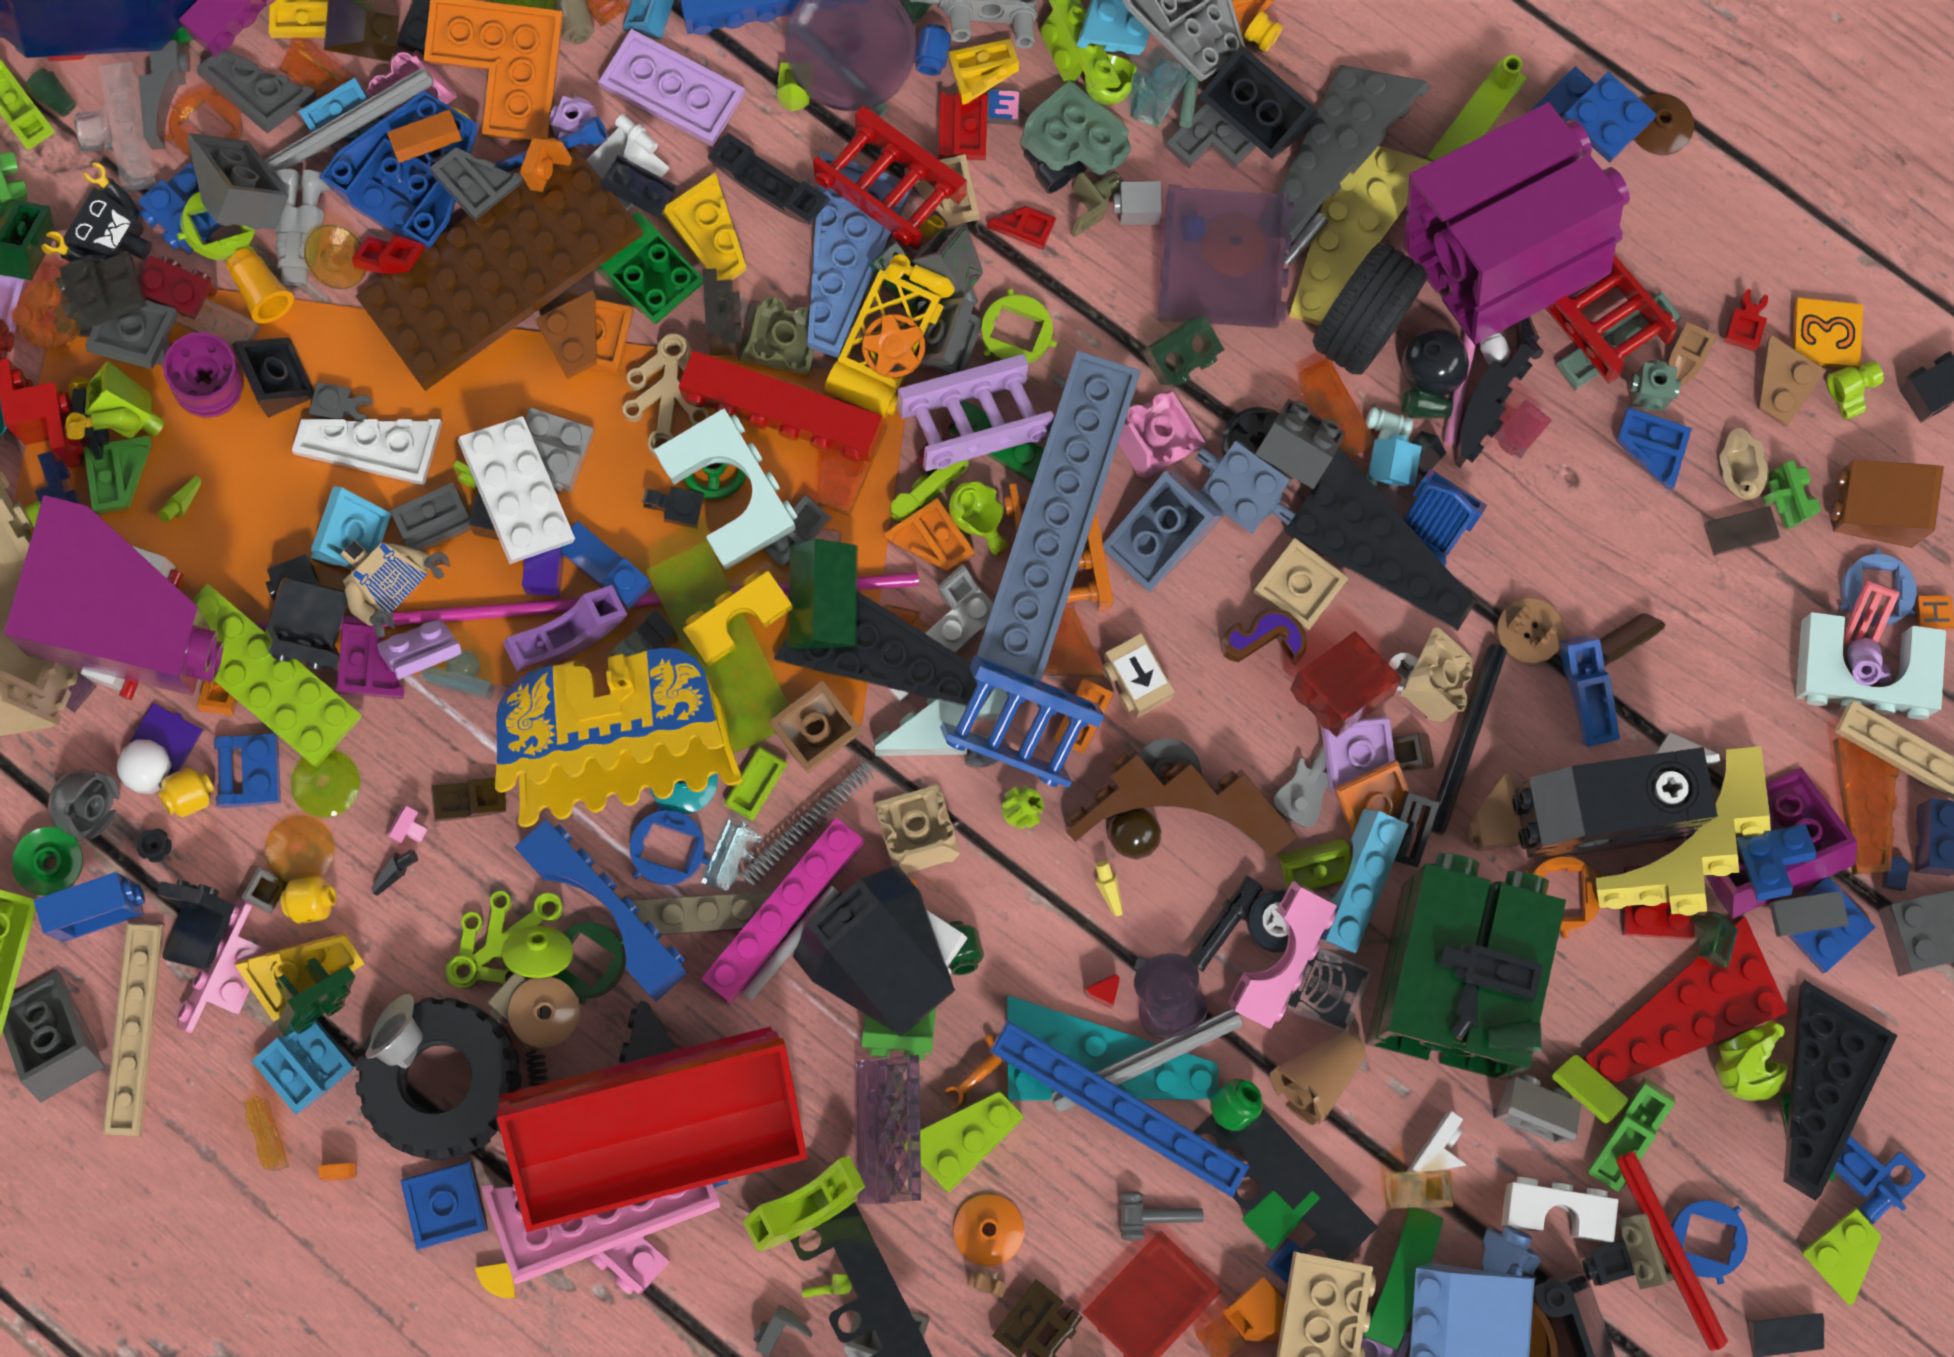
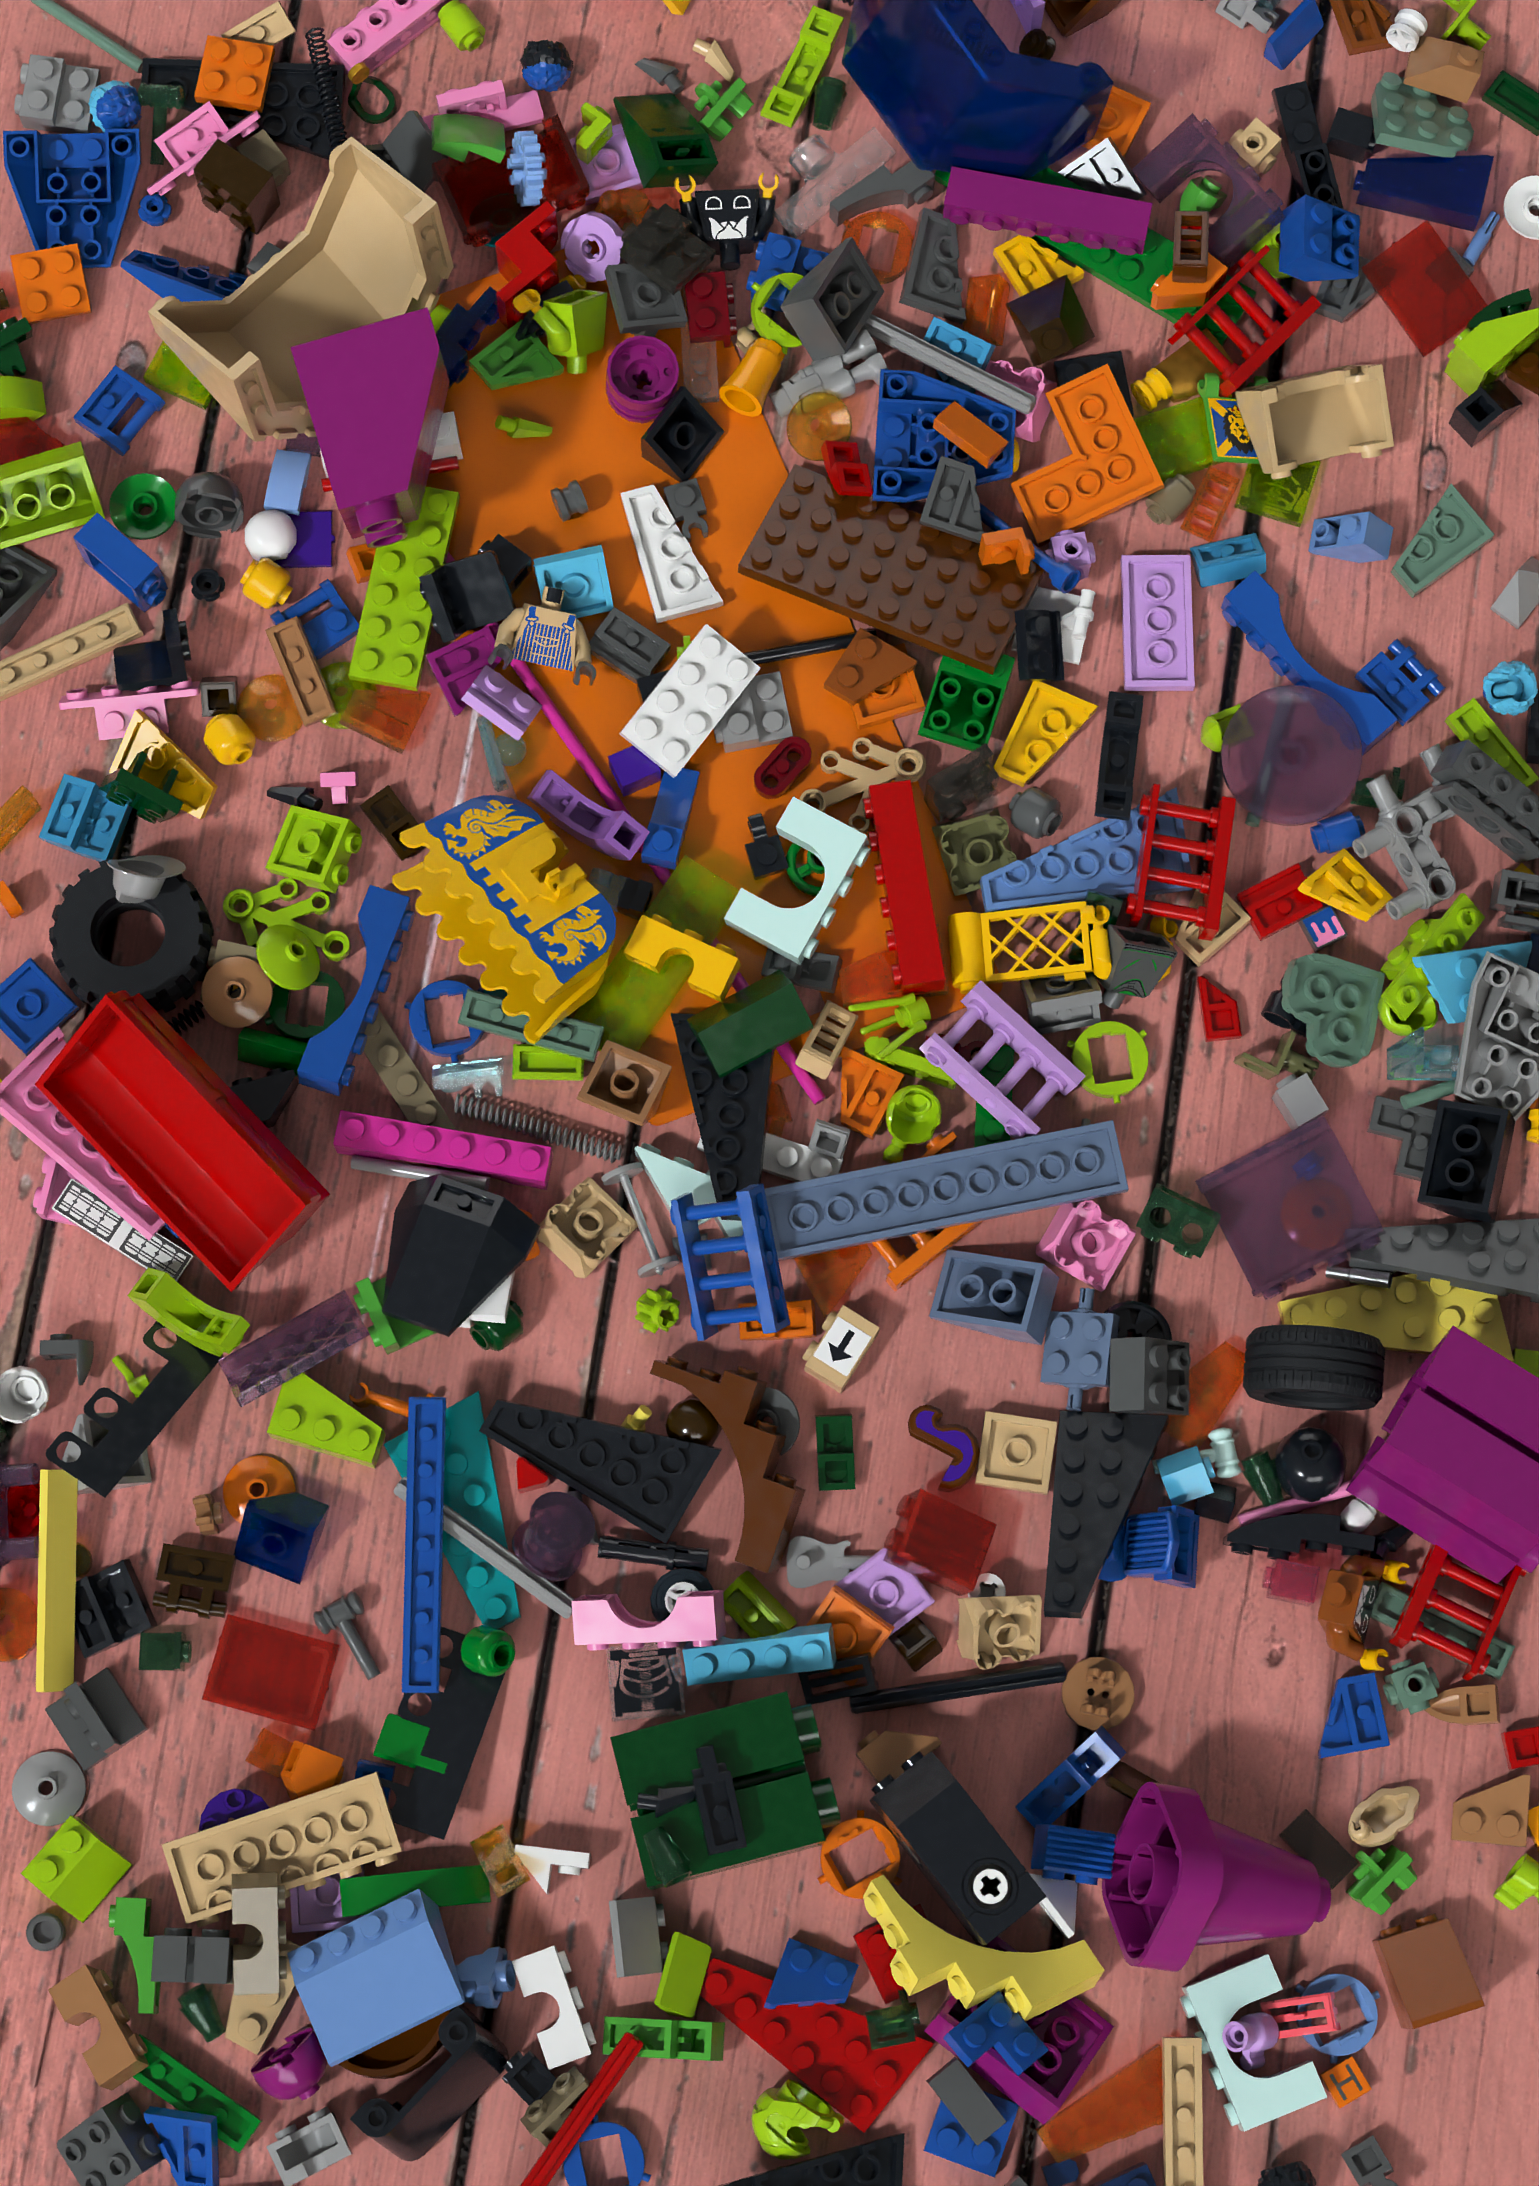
camera: 65 degrees right, 0 degrees up
(54, 331) = (575, 239): none -> lavender plate
(103, 725) = (287, 481): none -> light blue slope
(219, 275) = (745, 336): none -> tan hand
(272, 496) = (569, 500): none -> dark grey wheel
(284, 804) = (301, 671): none -> medium nougat tile
(369, 755) = (385, 716): none -> clear orange wing
(451, 878) = (315, 848): none -> lime plate
(522, 375) = (802, 649): none -> black bar
(611, 1010) = (269, 1049): none -> green slope
(615, 452) = (781, 768): none -> dark red plate
(678, 1240) = (101, 1221): none -> tile
(690, 807) = (567, 1037): none -> sand green tile
(776, 271) = (1035, 813): none -> dark grey head
(883, 560) = (817, 1058): none -> tan slope
(888, 462) = (911, 1013): none -> lime plant
(890, 773) = (623, 1174): none -> axle
(893, 346) = (1021, 954): orange wheel -> none
(1040, 1228) = (281, 1534): none -> clear blue slope
(1142, 908) = (622, 1468): none -> black wing
(1220, 730) = (835, 1452): none -> dark green slope
(1319, 1076) = (558, 1714): medium nougat cone -> none
(1567, 394) = (1349, 1606): none -> dark orange torso
(1642, 987) = (810, 1977): none -> blue wing
(1651, 719) = (1073, 1852): none -> blue brick
(1731, 638) = (1201, 1883): none -> magenta cone

